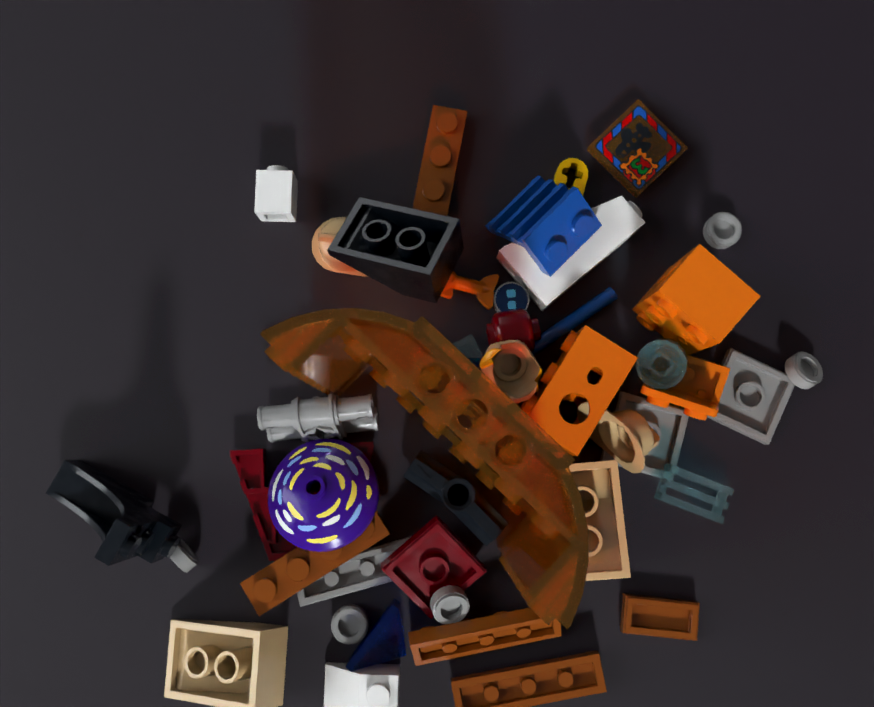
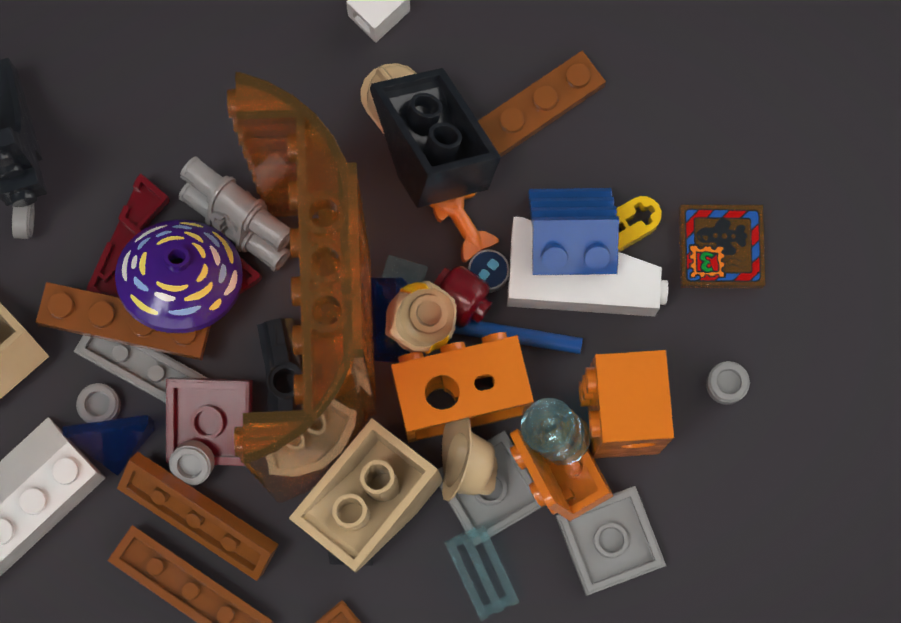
camera: 45 degrees right, 5 degrees down
(803, 370) = (678, 562): light grey tile -> none

